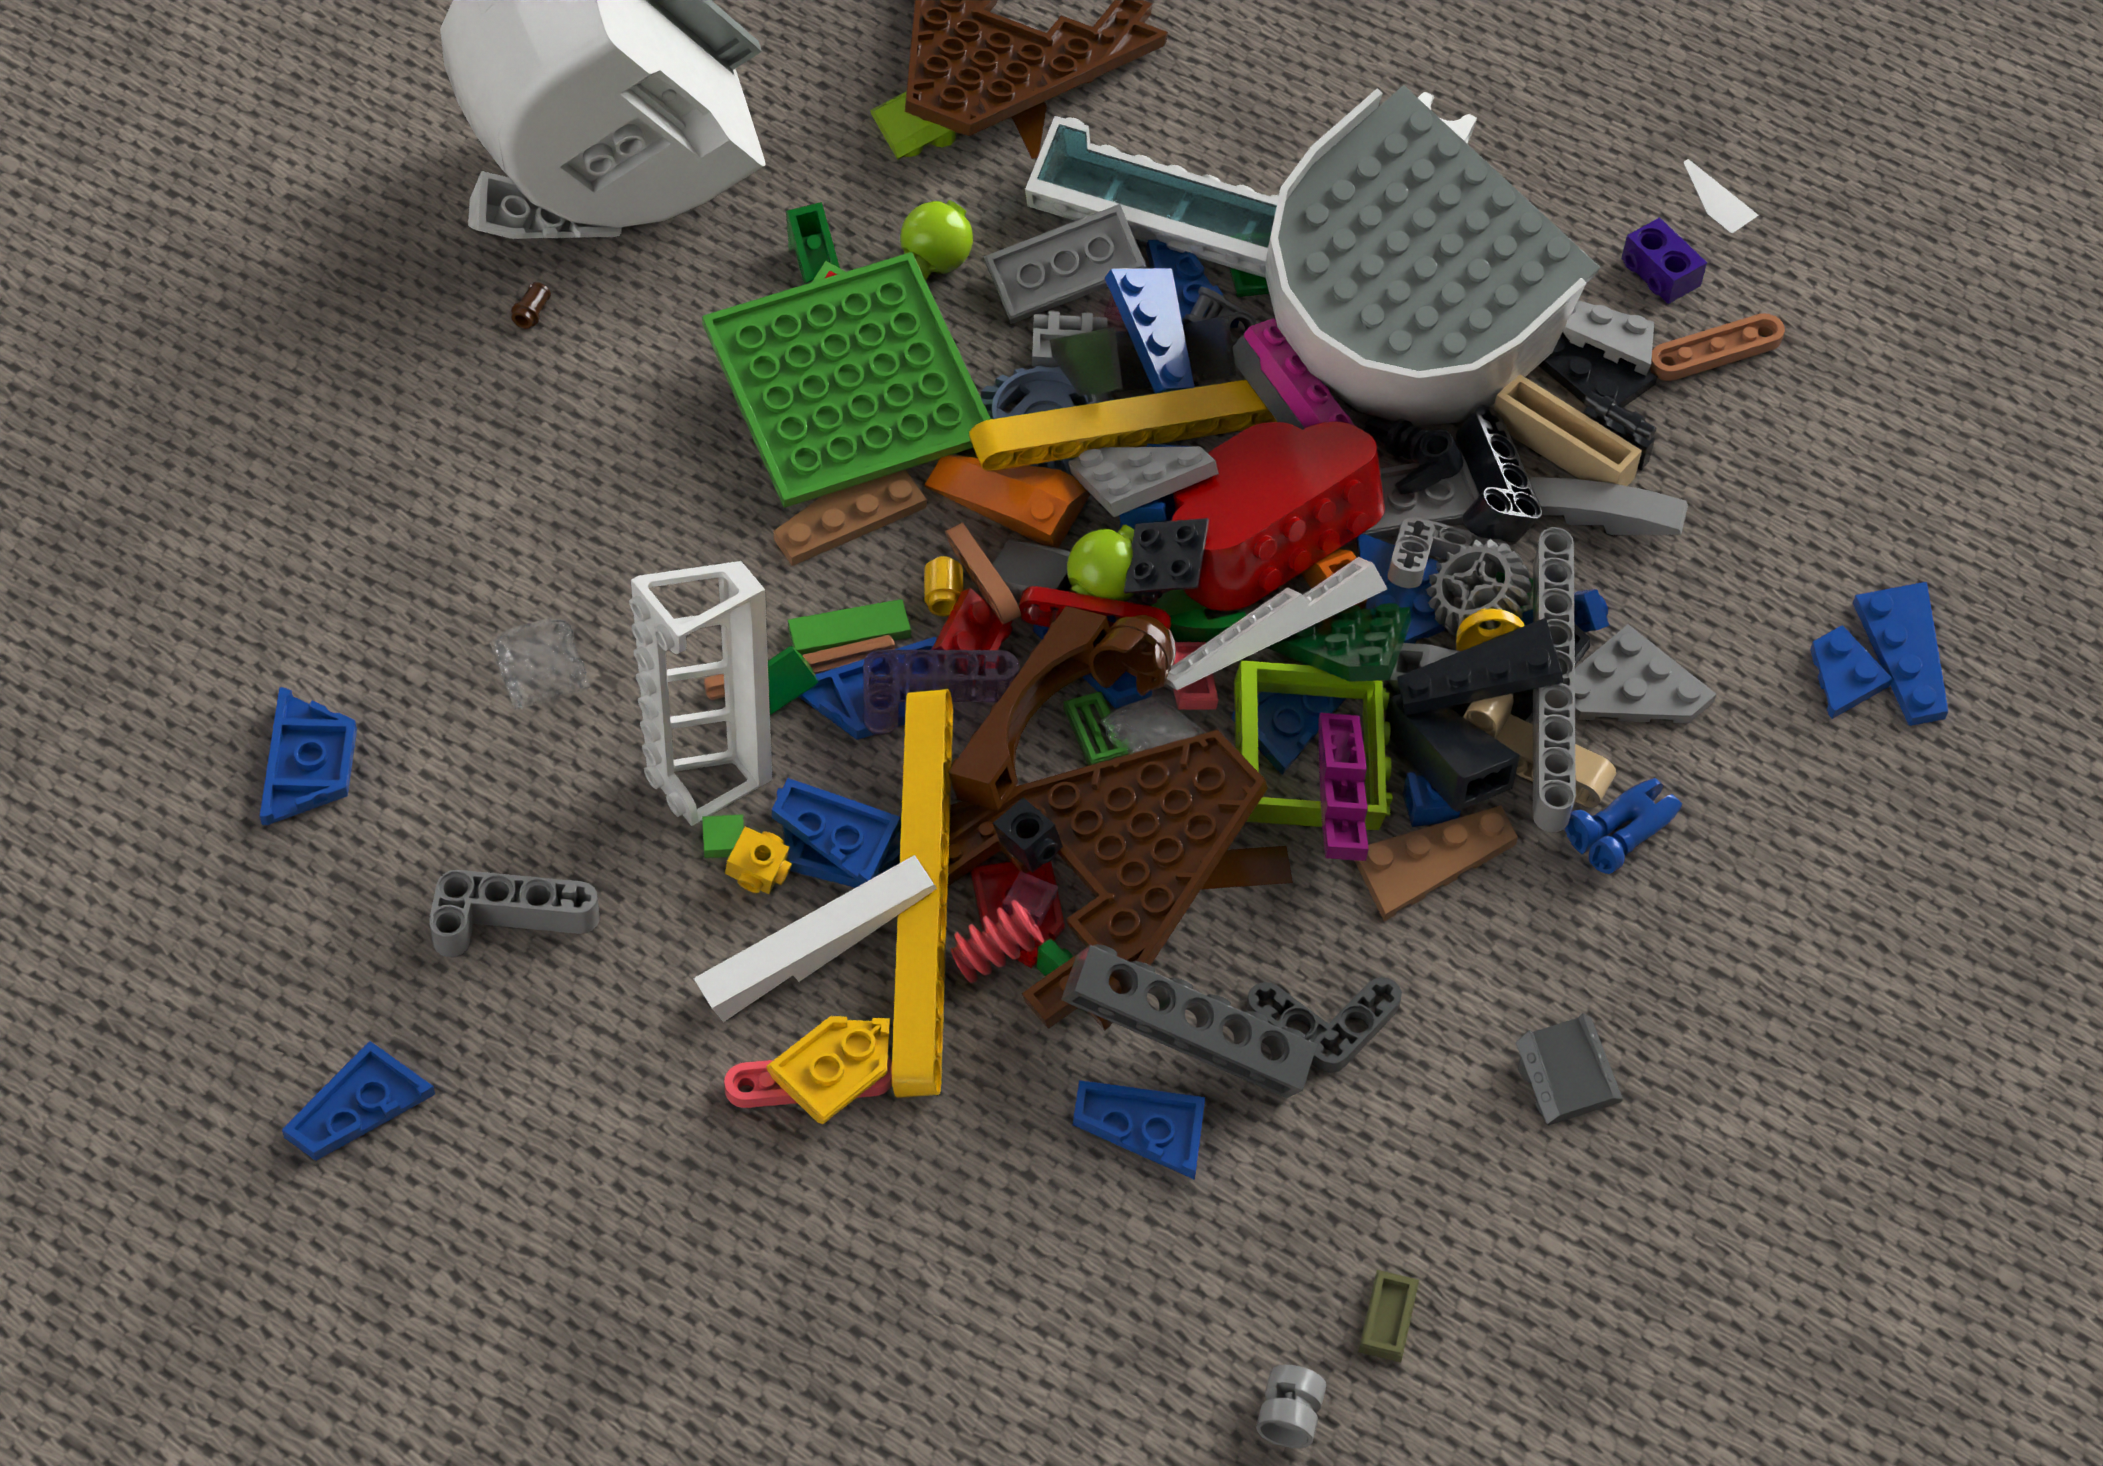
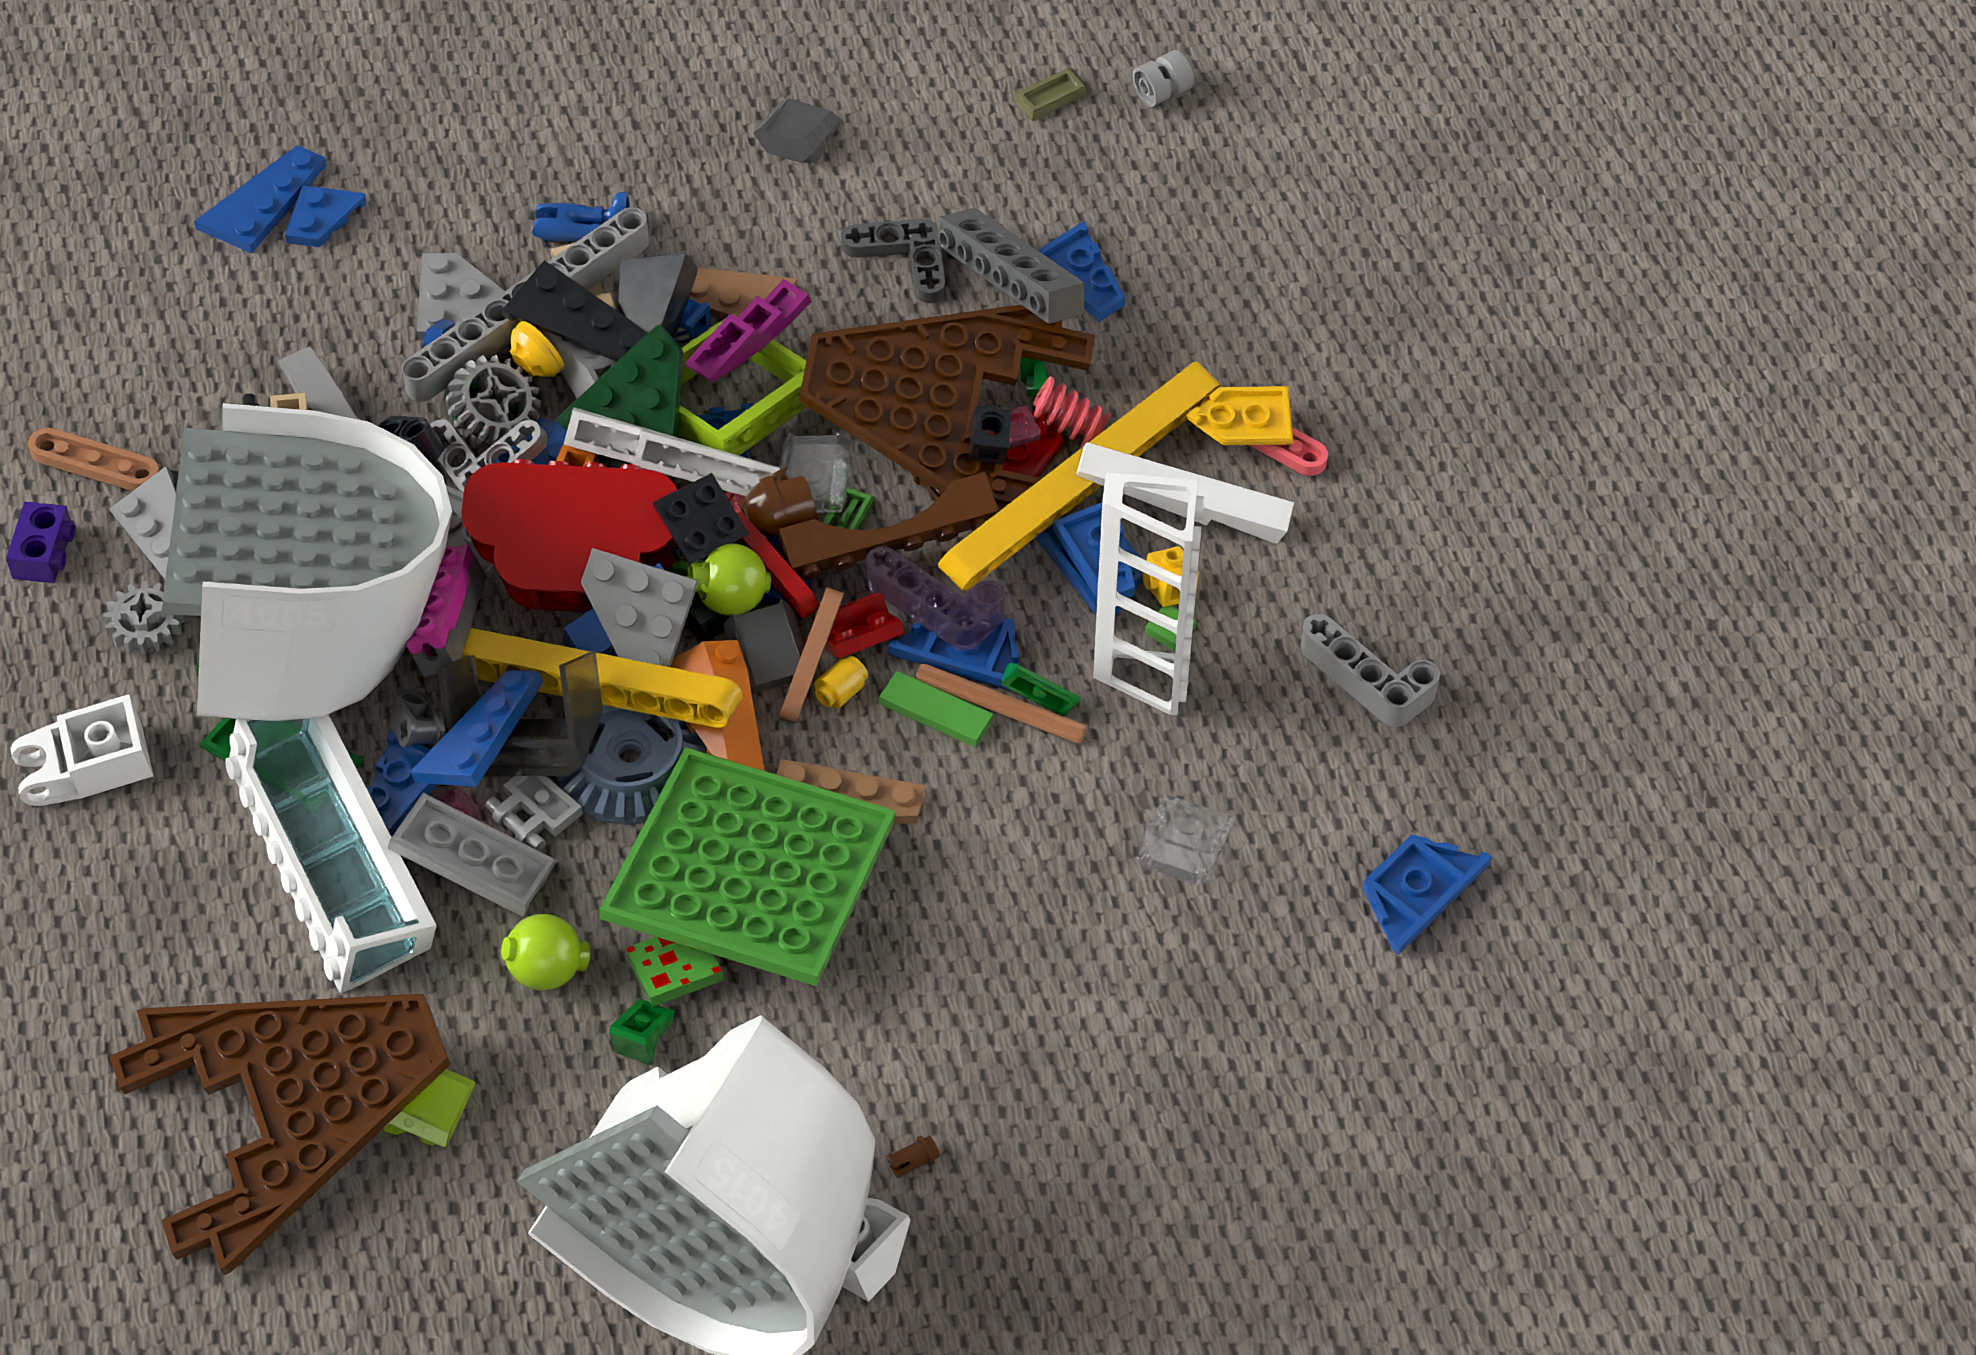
camera: 135 degrees left, 0 degrees up
(355, 1101) = (1569, 622): blue wing -> none

